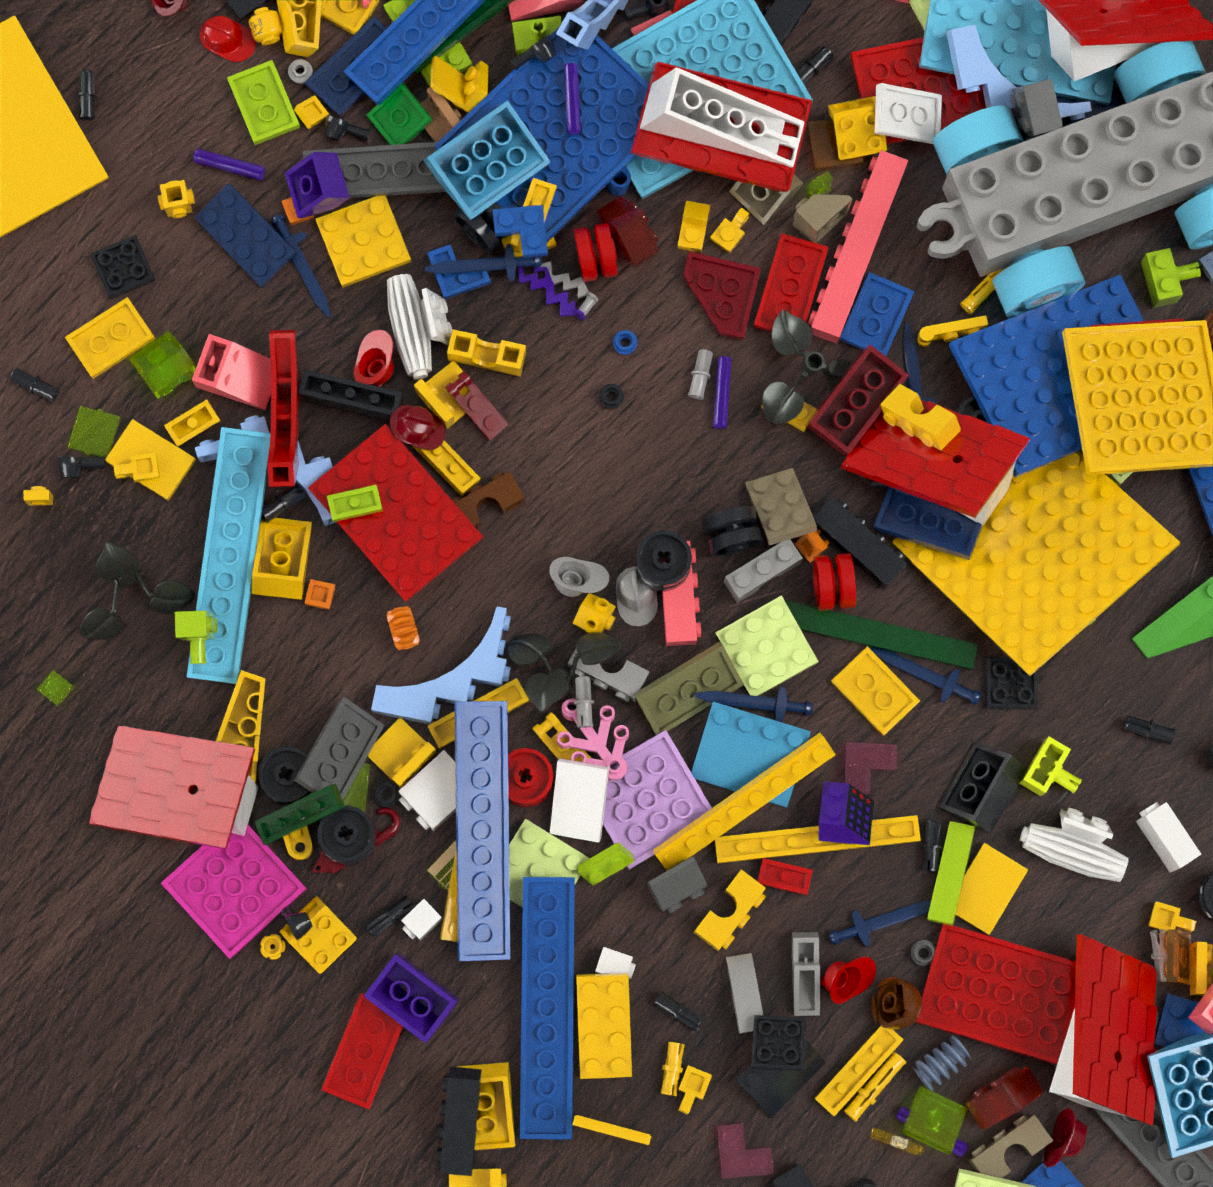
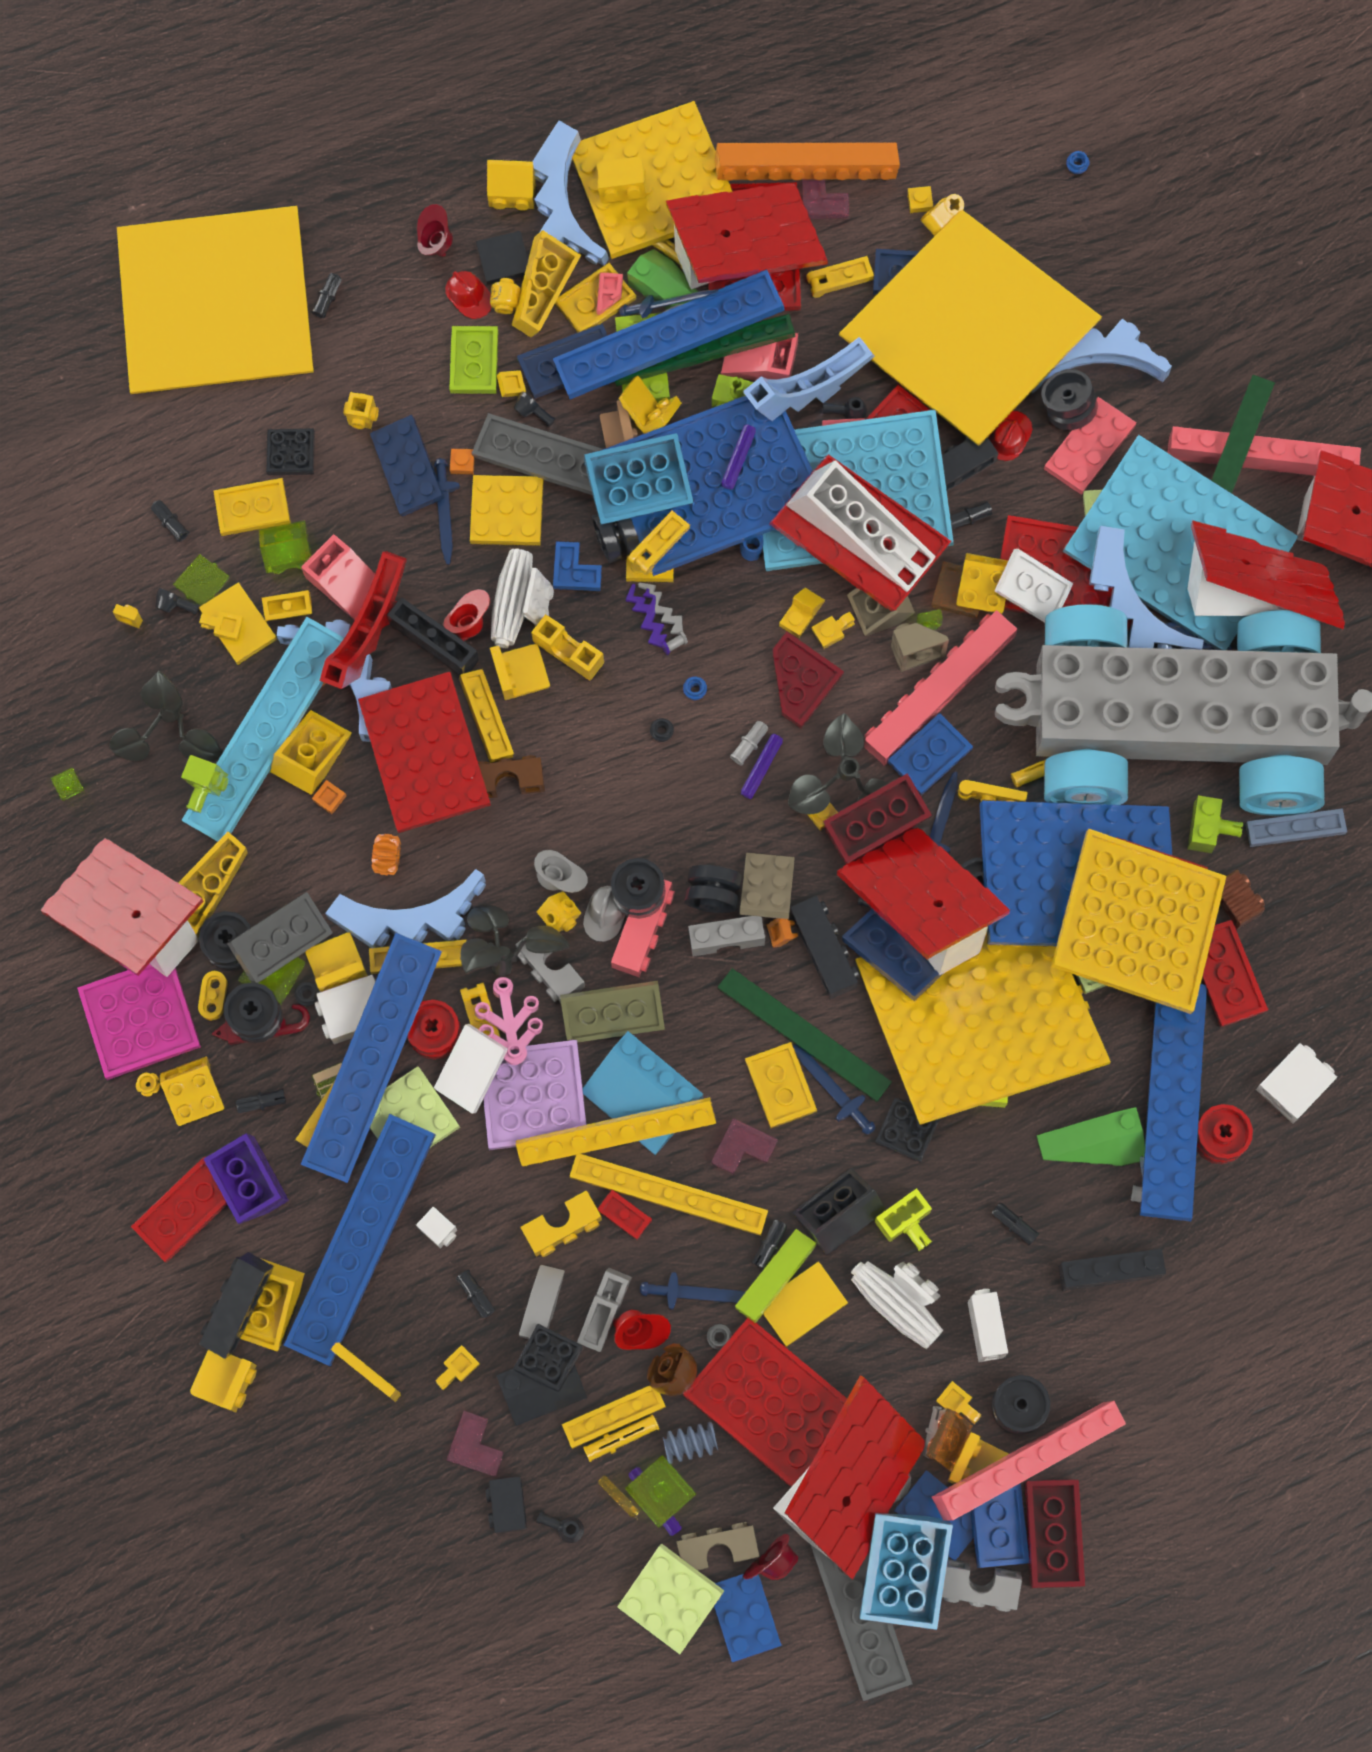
camera: 30 degrees right, 5 degrees down
(229, 164) = (421, 400): dark purple axle -> none
(282, 503) = (332, 705): black axle -> none
(298, 923) = (175, 1069): black bar -> none
(300, 78) = (513, 351): light grey plate -> none
(300, 814) = (220, 976): dark green plate -> none
(317, 184) = (486, 444): dark purple slope -> none
(354, 503) = (390, 727): lime plate -> none
(400, 116) = (586, 417): green plate -> none
(417, 427) = (477, 686): dark red piece -> none
(420, 920) = (285, 1116): white brick -> none
(476, 406) = (538, 690): dark red plate -> none
(508, 262) = (621, 577): dark blue sword -> none
(527, 222) = (648, 545): blue plate -> none
(542, 50) = (731, 405): black bar -> none
(583, 702) = (513, 984): light grey axle -> none
(600, 251) = (701, 597): red wheel -> none
(604, 1025) = (402, 1277): yellow plate -> none
(605, 863) = (469, 1134): lime plate -> none
(630, 230) = (740, 589): clear red brick -> none
(672, 1068) = (447, 1343): yellow pin -> none
(677, 885) = (524, 1180): dark grey slope -> none
(767, 647) = (700, 1005): yellowish green plate -> none
(778, 704) = (687, 1060): dark blue sword -> none
(791, 280) = (867, 693): red plate -> none
(837, 581) = (780, 969): red wheel -> none
(845, 814) = (701, 1181): dark purple slope -> none
(933, 428) = (915, 846): yellow arch -> none
(1005, 1097) = (733, 1497): clear red brick -> none
(1036, 108) = (1148, 623): dark grey brick -> none

